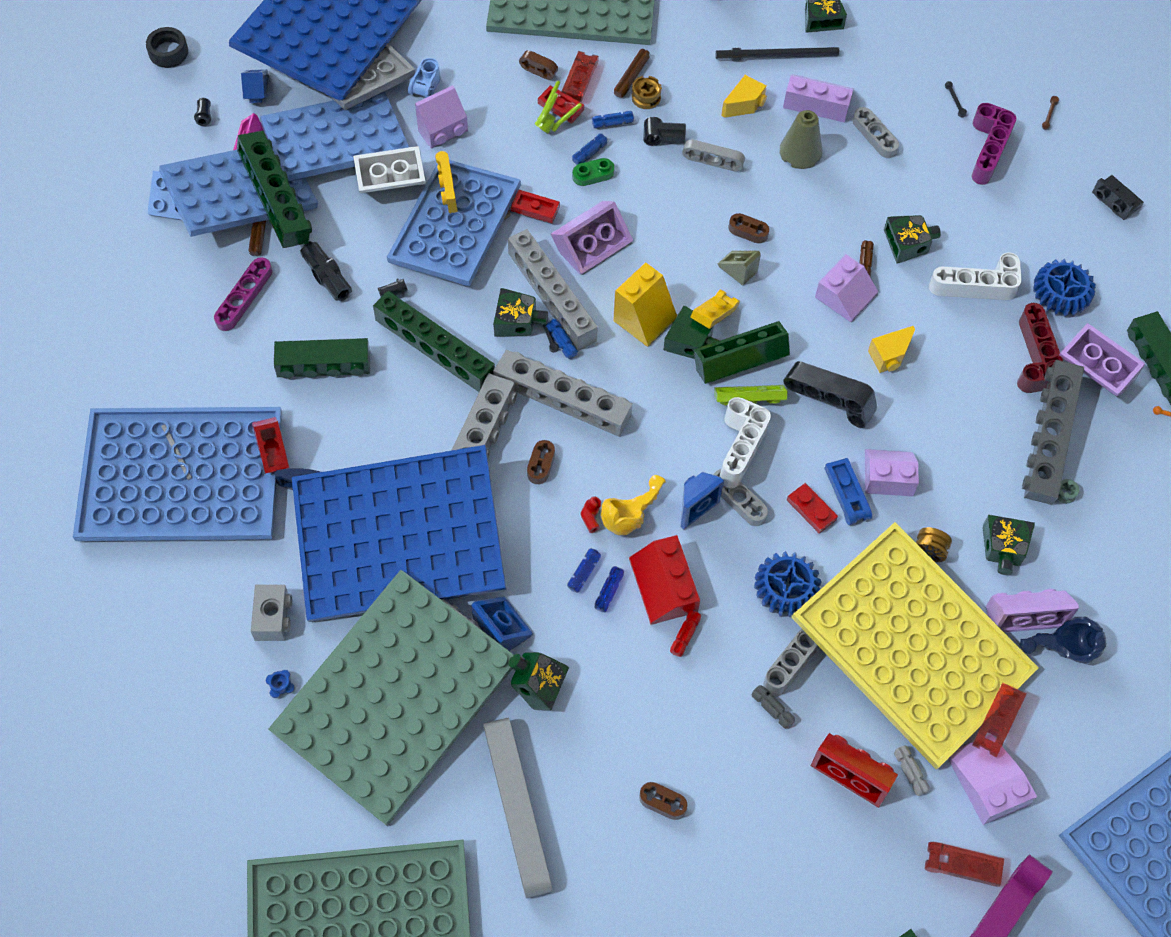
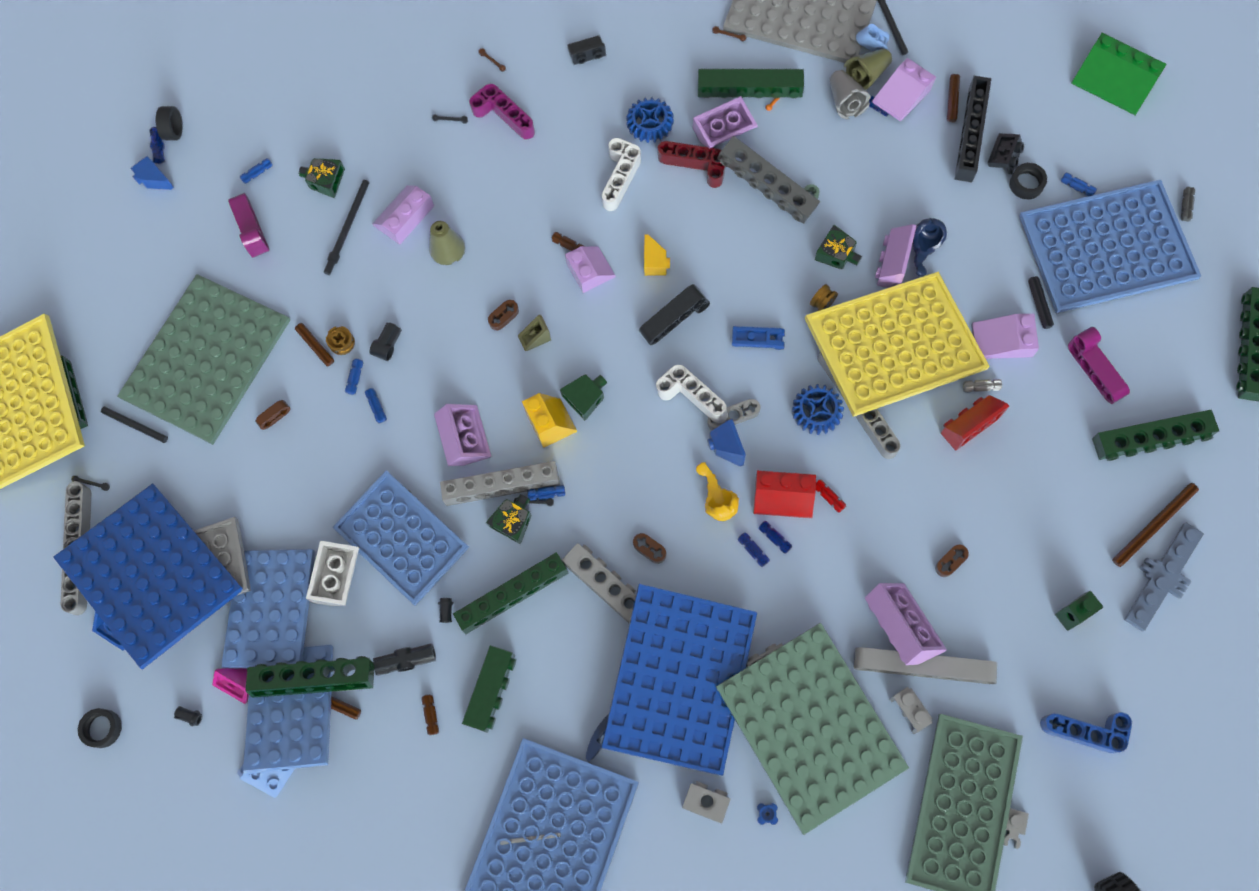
camera: 60 degrees left, 10 degrees up
(240, 292) = (398, 734): magenta beam -> none
(254, 85) = (181, 660): blue slope -> none
(270, 445) = (560, 756): red arch -> none
(276, 315) = (430, 714): none -> reddish brown axle
(425, 78) = (246, 514): light blue piece -> none
(441, 117) = (295, 512): lavender slope -> none
(446, 181) = (364, 529): yellow plate -> none
(456, 805) = (912, 709): none -> light grey window
(500, 622) = (777, 626): blue slope -> none
(535, 206) = (413, 468): red plate -> none
(537, 678) = (835, 614): torso -> none
(546, 120) = (333, 428): lime plant -> none
(558, 760) = (904, 623): none -> lavender slope
(562, 104) = (321, 411): red plate -> none
(566, 402) = (594, 519): light grey brick -> none
(580, 75) = (299, 386): clear red plate -> none
(589, 513) = (706, 528): red arm -> none
(595, 172) = (398, 410): green plate -> none
(701, 151) = (425, 313): light grey beam -> none
(715, 309) = (571, 368): yellow plate -> none
(742, 352) = (616, 363): dark green brick -> none
(744, 98) = (381, 267): yellow slope -> none
(771, 393) = (652, 372): lime plate -> none
(773, 706) = (906, 457): dark grey axle -> none
(812, 508) = (761, 368): red plate -> none
(875, 124) = (461, 192): light grey beam -> none
(891, 472) = (752, 301): lavender slope -> none
(909, 236) = (562, 204): torso -> none
(965, 864) = (1059, 379): clear red plate -> none
(999, 718) = (971, 312): clear red plate -> none
(1063, 811) = (1041, 302): none -> black axle

